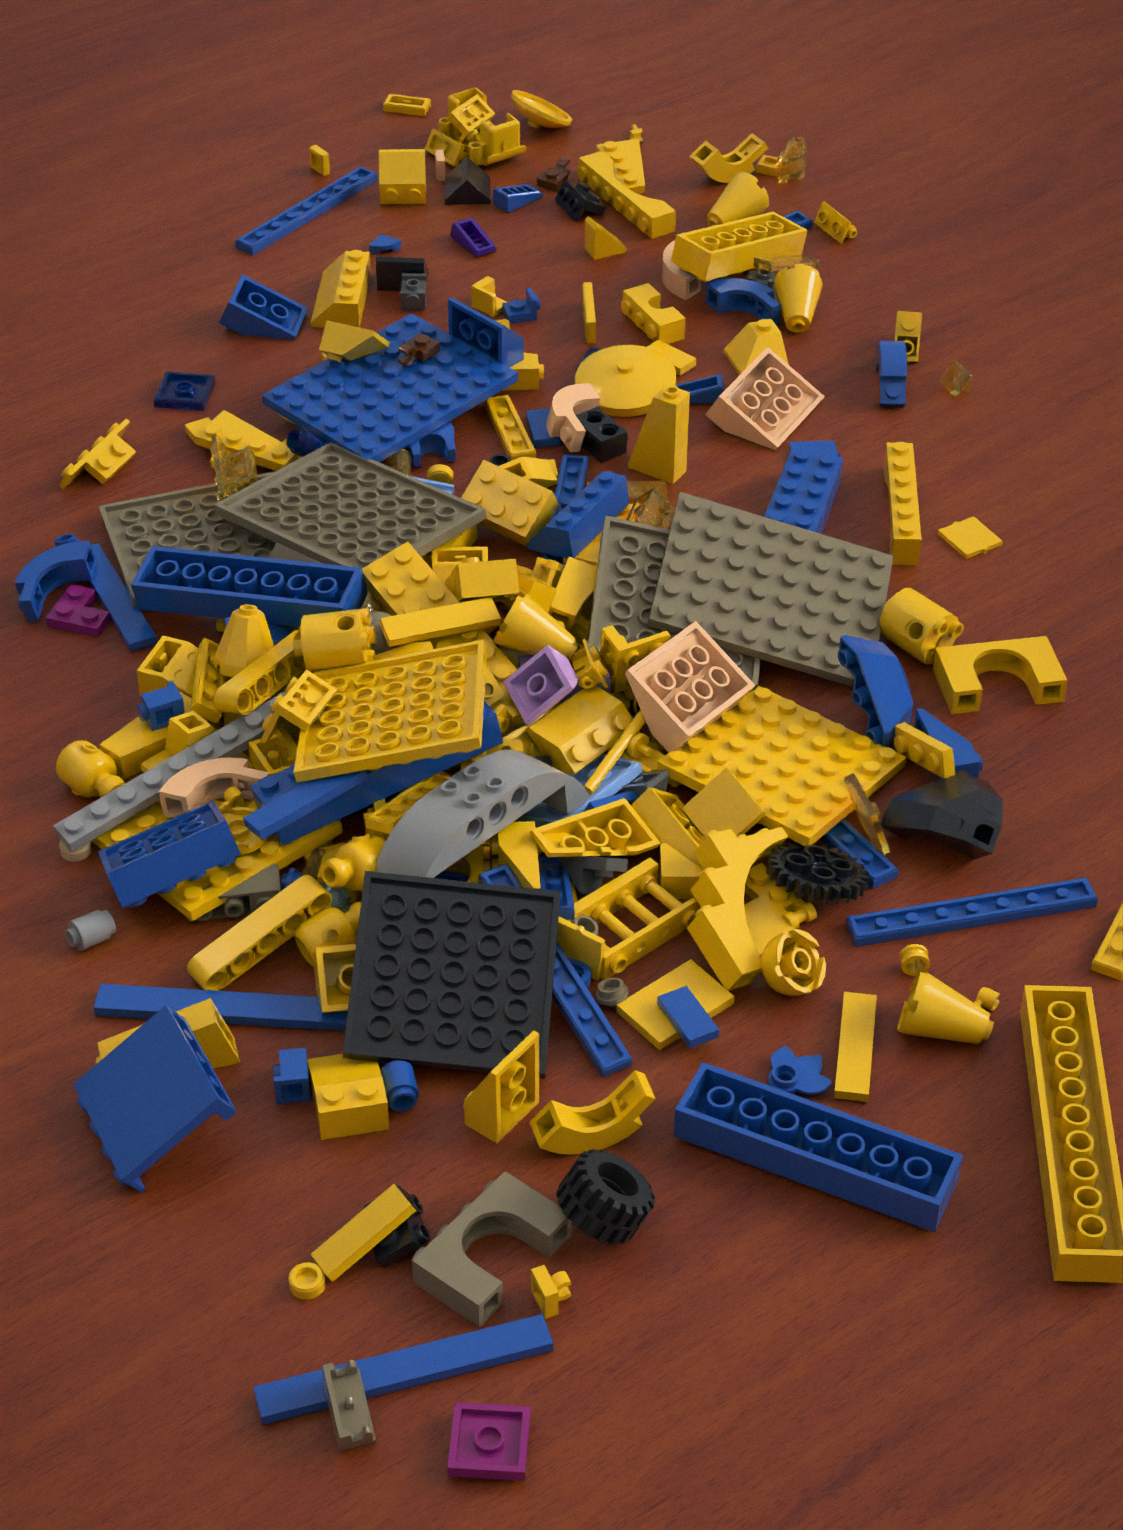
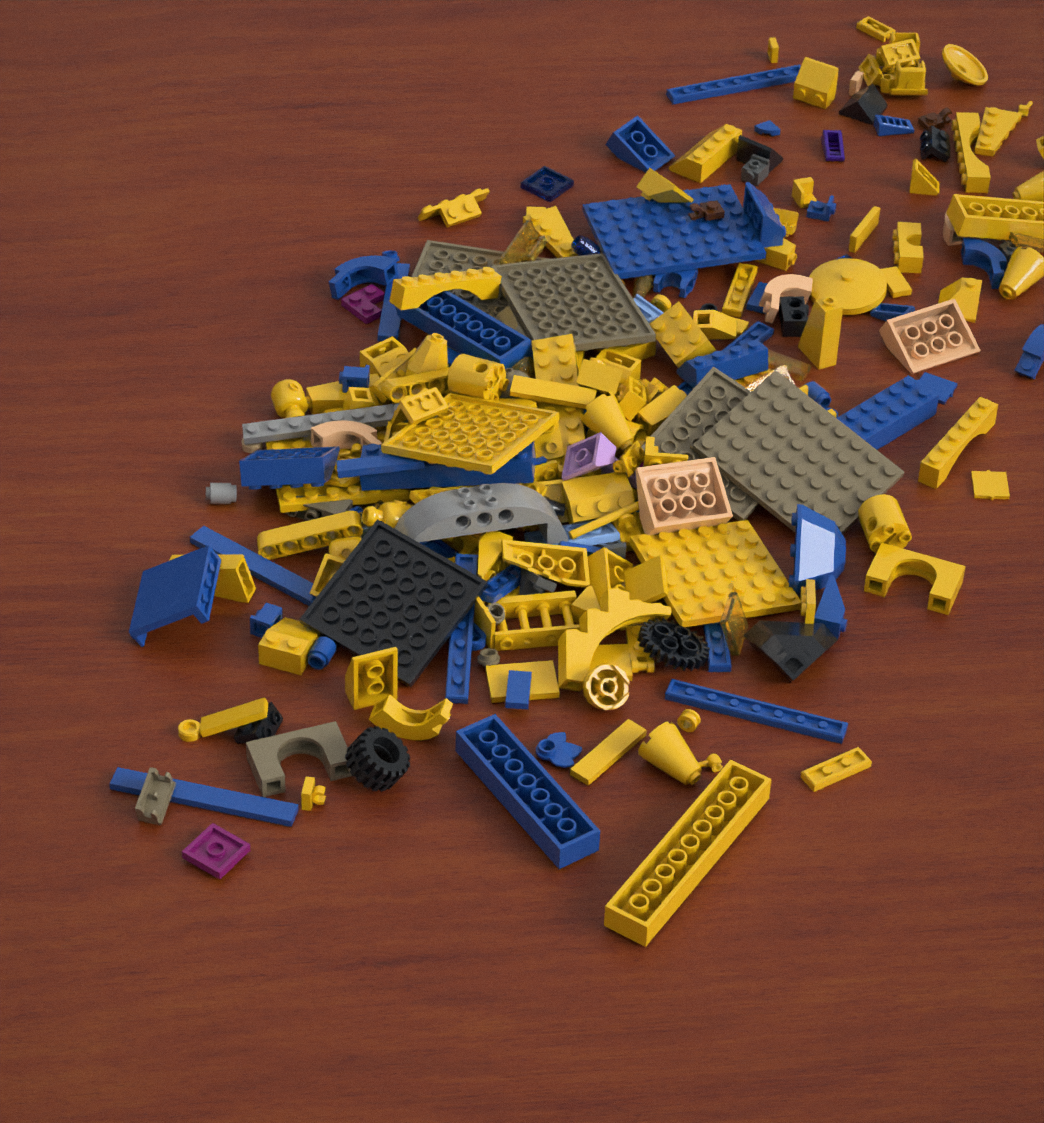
camera: 30 degrees right, 0 degrees up
(163, 565) = (414, 291): none -> yellow arch

